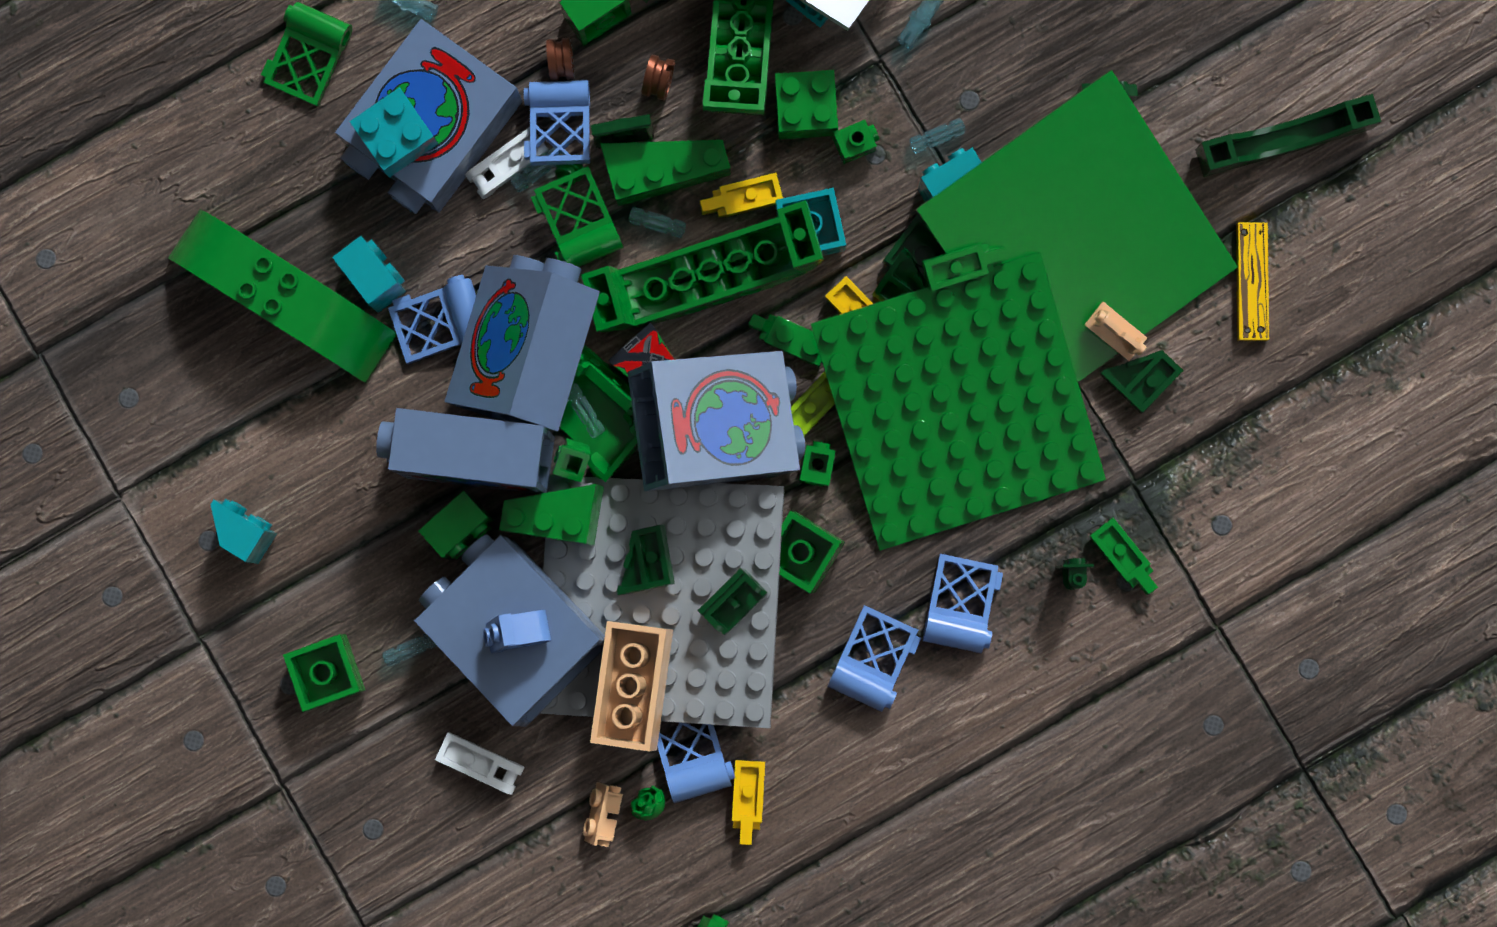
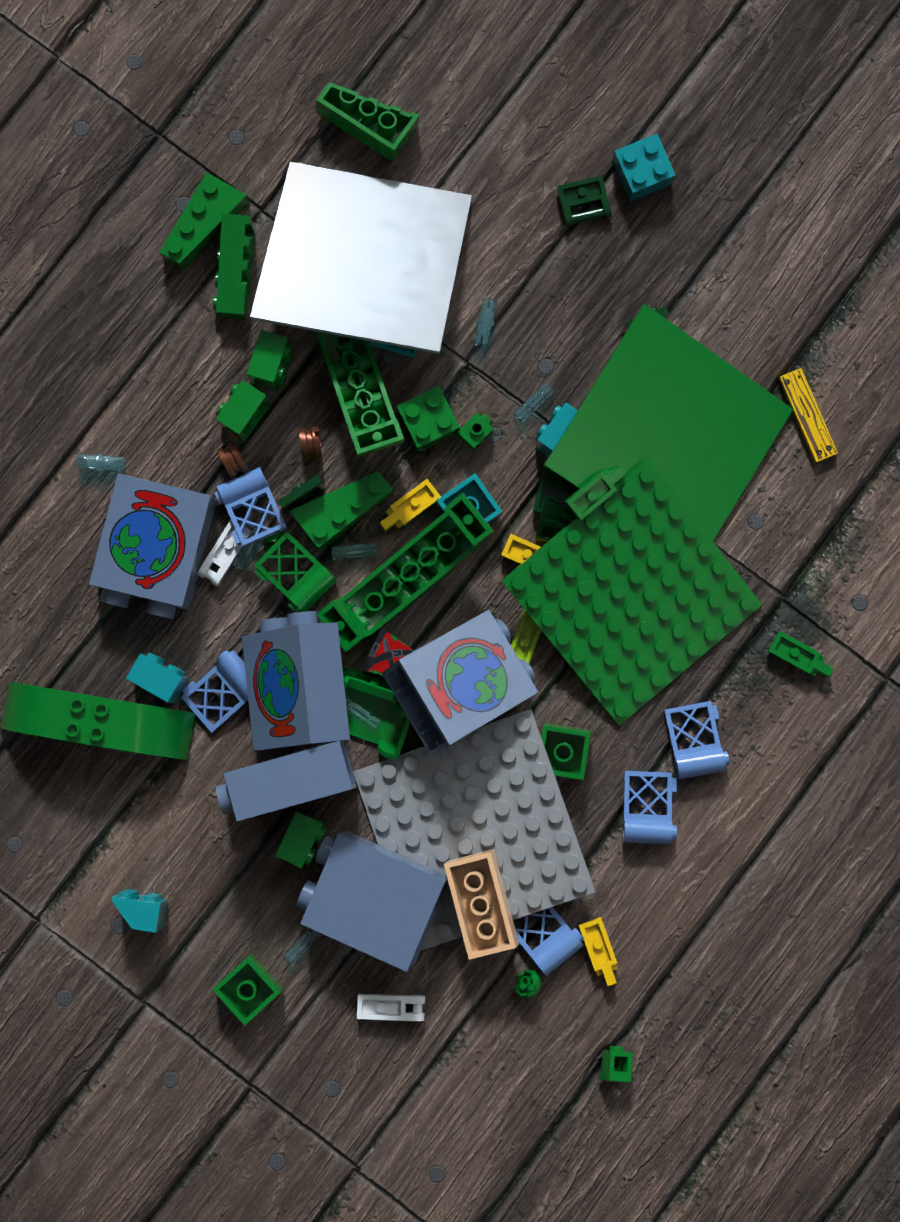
camera: 30 degrees left, 0 degrees up
(316, 30) = (40, 512): green piece -> none
(394, 132) = (133, 567): teal brick -> none
(516, 631) = (381, 900): medium blue pin -> none
(556, 515) = (372, 800): green wedge -> none
(571, 460) = (365, 754): green brick -> none
(598, 828) = (498, 1018): light nougat hinge -> none
(647, 562) = (453, 806): dark green wing -> none
(732, 601) = (530, 810): dark green hinge -> none
(787, 337) = (486, 596): green hinge -> none
(817, 477) = (552, 690): green brick -> none
(1074, 573) = (769, 683): dark green hinge -> none
(1116, 331) = (726, 493): light nougat hinge -> none
(1143, 378) = (758, 519): dark green wing -> none
(1287, 137) = (790, 298): dark green arch -> none

